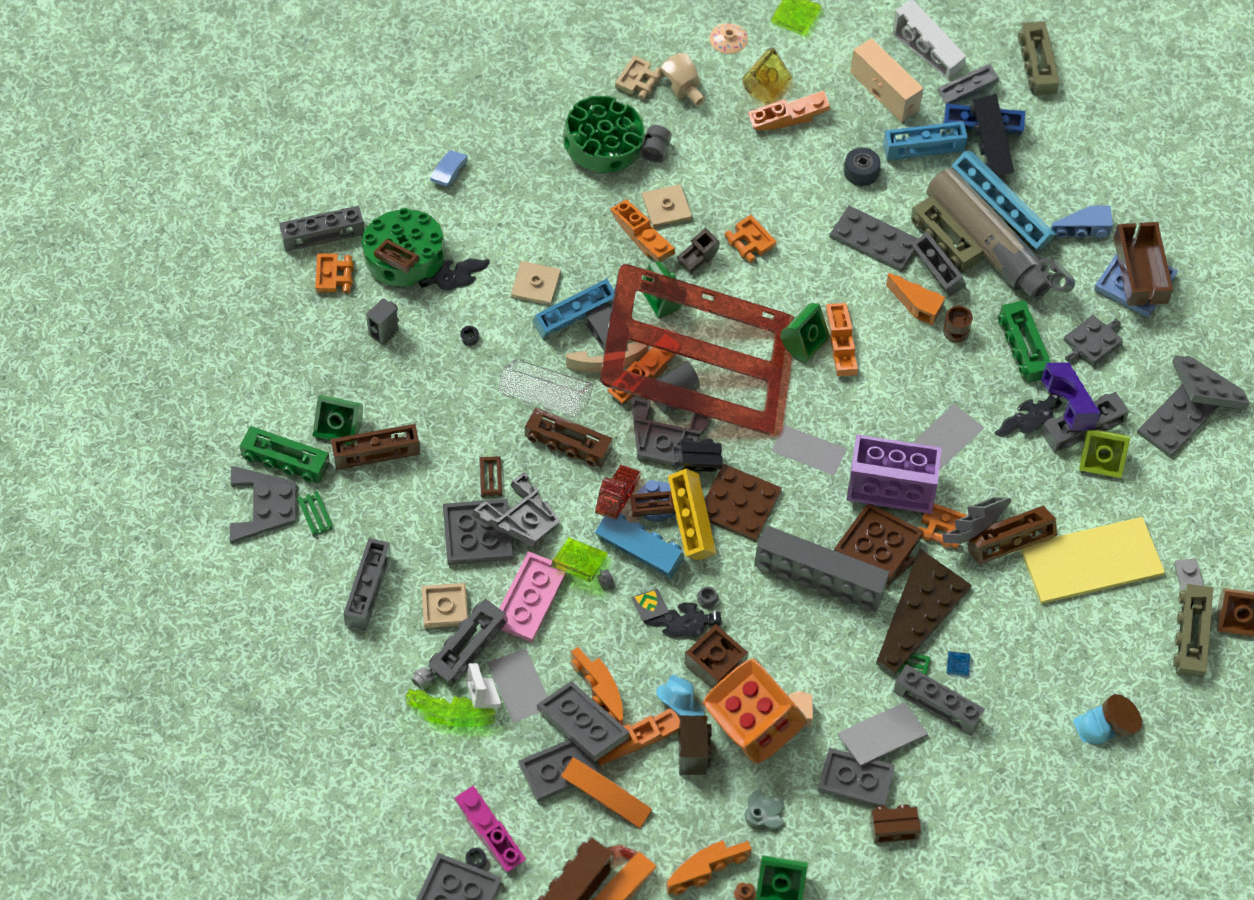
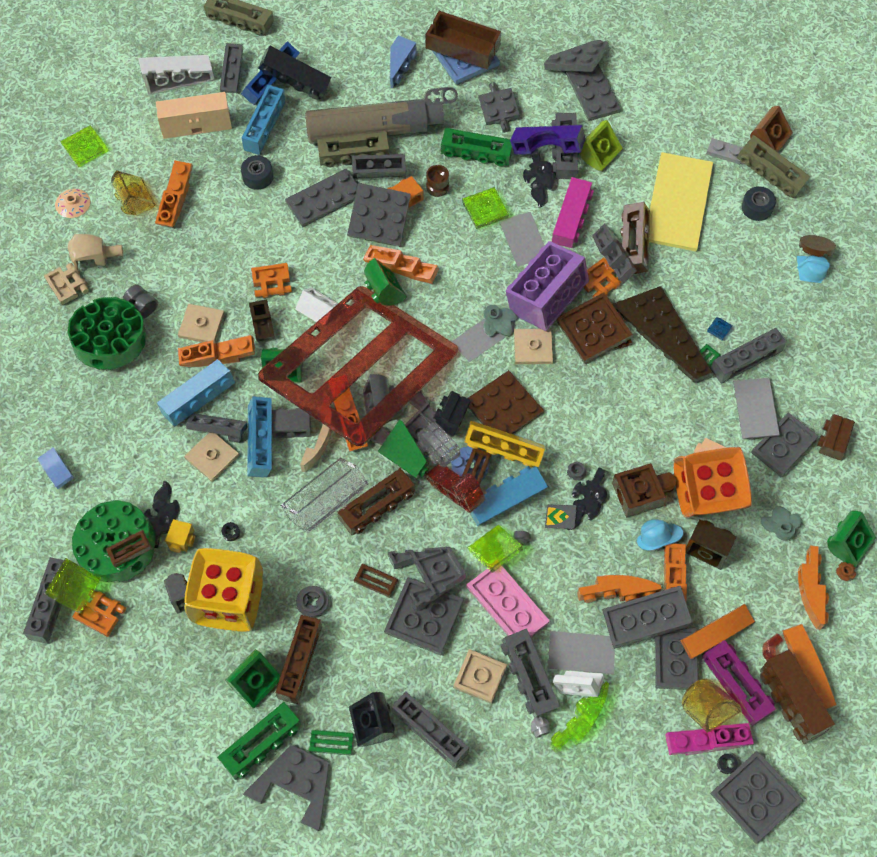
camera: 60 degrees left, 5 degrees up
(342, 236) = (72, 586): none -> clear neon green plate
(352, 533) = (371, 720): none -> black brick
(403, 351) = (224, 589): none -> yellow piece
(436, 426) = (313, 592): none -> dark grey gear
(440, 296) = (180, 536): none -> yellow brick
(525, 813) = (709, 704): none -> clear yellow brick
(552, 866) = (759, 705): none -> magenta brick
(566, 270) = (218, 425): none -> dark grey hinge
(589, 236) = (196, 392): none -> brick
(631, 433) = (404, 452): none -> green slope
(653, 457) = (438, 444): none -> clear brick
(749, 286) = (314, 304): none -> white panel
(821, 569) = (600, 377): dark grey brick -> none
(824, 498) = (533, 346): none -> tan plate
(832, 456) = (500, 322): none -> sand green plate
(881, 291) = (378, 214): none -> dark grey plate
(958, 383) = (485, 208): none -> clear neon green plate
(1004, 200) = (351, 95): medium azure brick -> none
(1005, 463) = (571, 212): none -> dark pink brick
(1147, 635) = (758, 203): none -> black wheel

